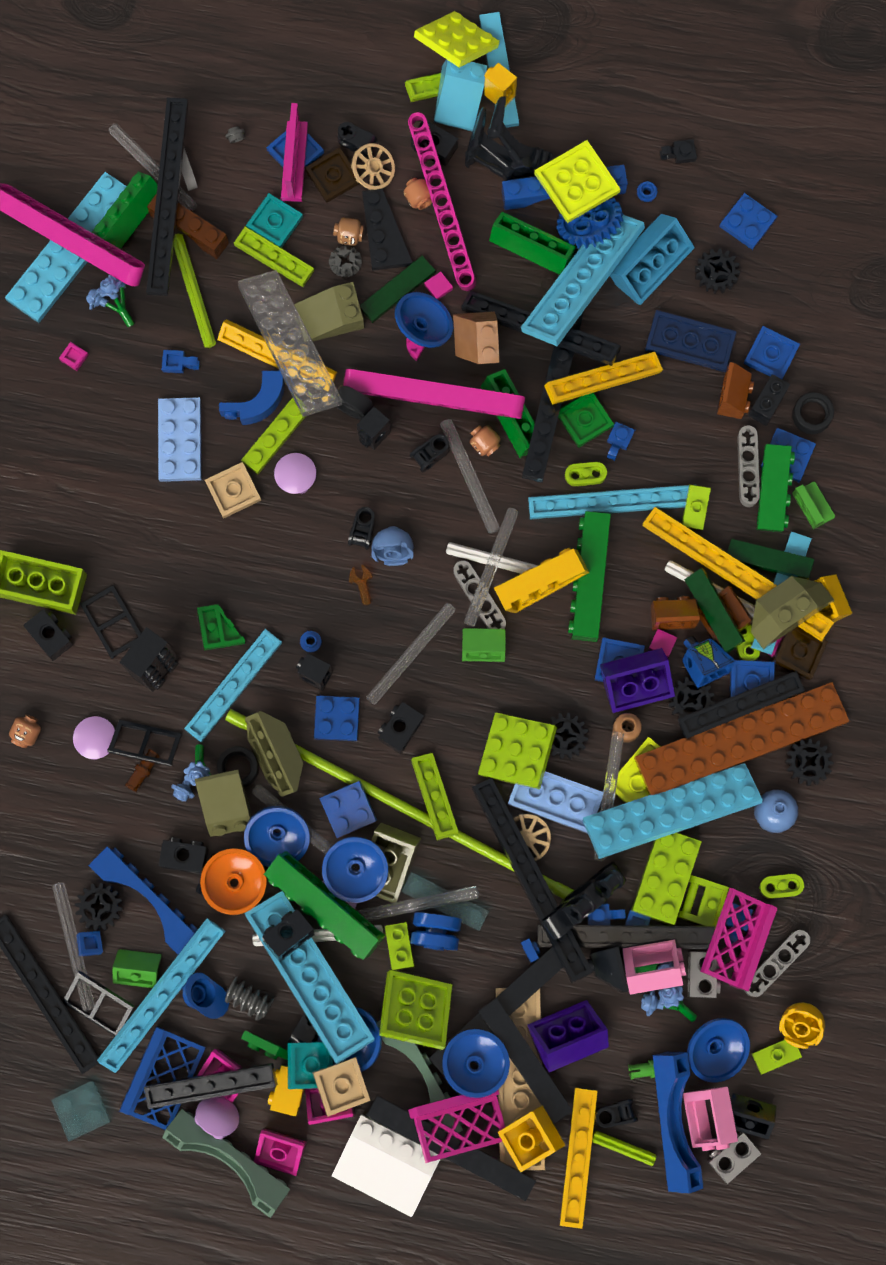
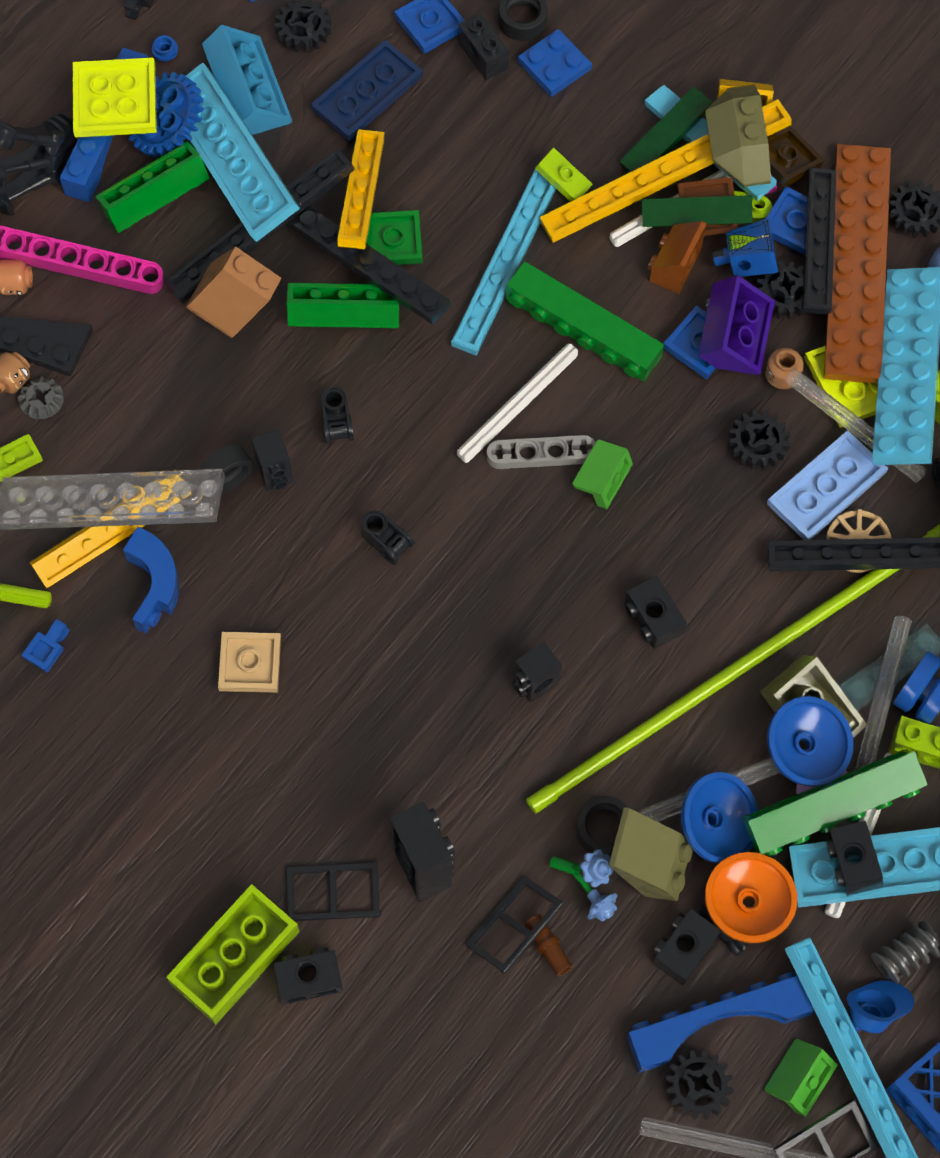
camera: 65 degrees left, 10 degrees down
(24, 731) = (419, 1069): nougat head -> none
(89, 943) = (741, 1120): blue plate -> none
(93, 737) = (473, 986): lavender dish -> none
(179, 439) = (146, 695): light blue plate -> none
(217, 629) = (414, 766): green wing -> none
(233, 685) = (497, 784): medium azure tile -> none
(273, 437) = (209, 581): lime plate -> none
(275, 752) = (615, 768): olive wedge -> none
(295, 473) = (270, 581): lavender dish -> none
(315, 646) = (491, 673): blue plate -> none
(331, 312) = (97, 436): olive slope -> none
(336, 718) = (602, 682): blue plate -> none
(348, 809) = (724, 720): blue plate -> none
(362, 583) = (450, 572): clear orange bar -> none
(392, 546) = (428, 511): medium blue cylinder -> none
(394, 290) = (112, 359): dark green tile -> none
(410, 654) = (568, 560): clear axle -> none
(414, 349) = (193, 373): dark pink tile -> none
(423, 319) = (172, 343): blue dish -> none
(434, 796) = (760, 613): lime plate -> none
(435, 393) = (272, 369): dark pink beam -> none
(438, 286) = (137, 313): dark pink tile -> none
(470, 476) = (392, 391): clear axle -> none
(485, 440) = (357, 352): nougat head -> none
(491, 567) = (515, 417): clear axle -> none
(517, 750) = (751, 496): lime plate -> none
(541, 581) = (565, 367): yellow wedge -> none
(585, 472) = (458, 271): lime plate -> none
(619, 438) = (437, 215): blue plate -> none
(663, 640) = (699, 288): dark pink tile -> none
(735, 391) = (453, 74): dark orange slope -> none
(752, 466) = (547, 102): light grey beam -> none
(774, 488) = (588, 87): green brick -> none
(813, 504) = (626, 67): bright green panel -> none

